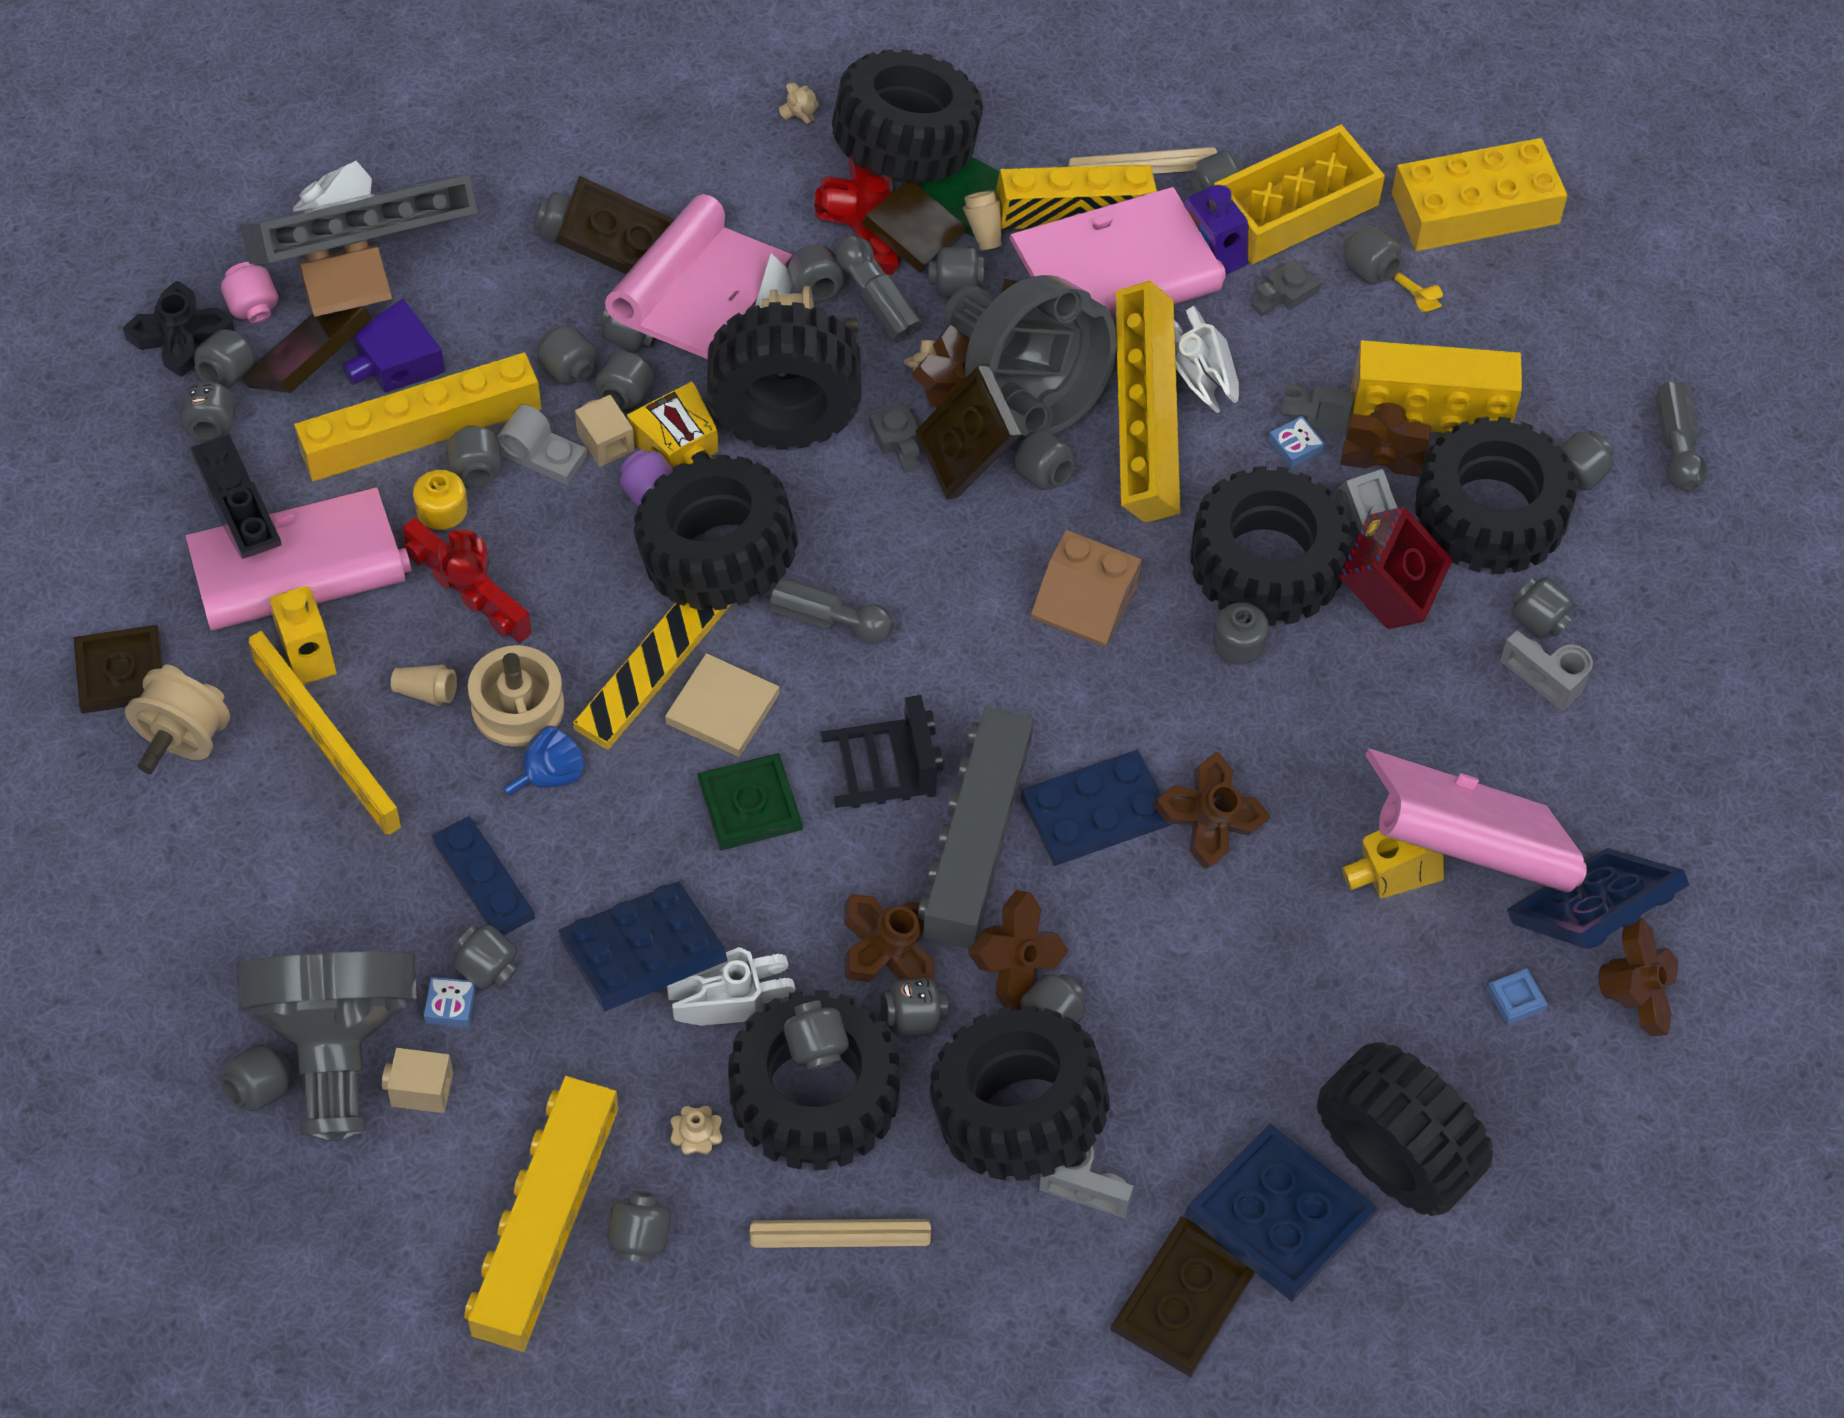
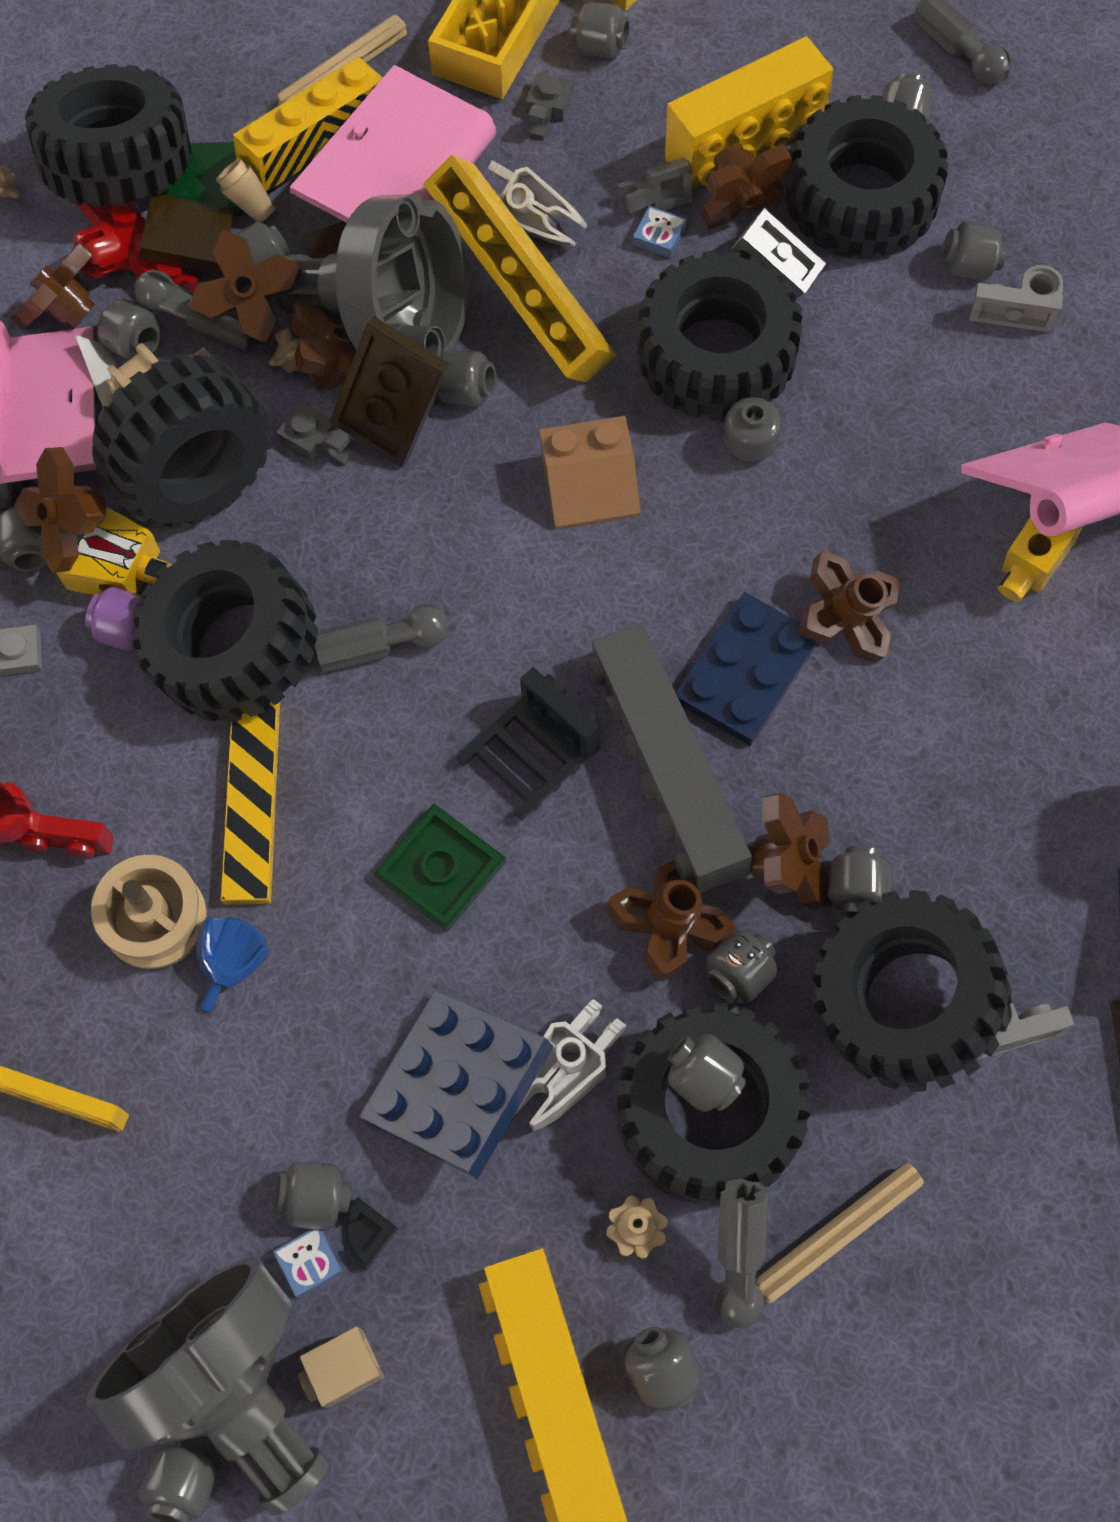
camera: 30 degrees left, 10 degrees up
(426, 683) = (50, 955): tan cone -> none
(483, 876) = (246, 1111): dark blue plate -> none
(505, 1011) = (367, 1232): none -> black tile
(604, 430) = (41, 596): tan brick -> none
(660, 371) = (60, 509): none -> reddish brown plant
(722, 705) = (346, 790): tan tile -> none
(753, 1180) = (741, 1251): none -> dark grey piece
(782, 213) = (58, 292): none -> reddish brown plant
(921, 291) = (223, 295): none -> reddish brown plant
(1214, 169) = (412, 37): dark grey head -> none
(1221, 225) = (458, 72): dark purple torso -> none
(1396, 568) = (840, 289): dark red brick -> none
(1424, 298) = (666, 45): yellow hand -> none

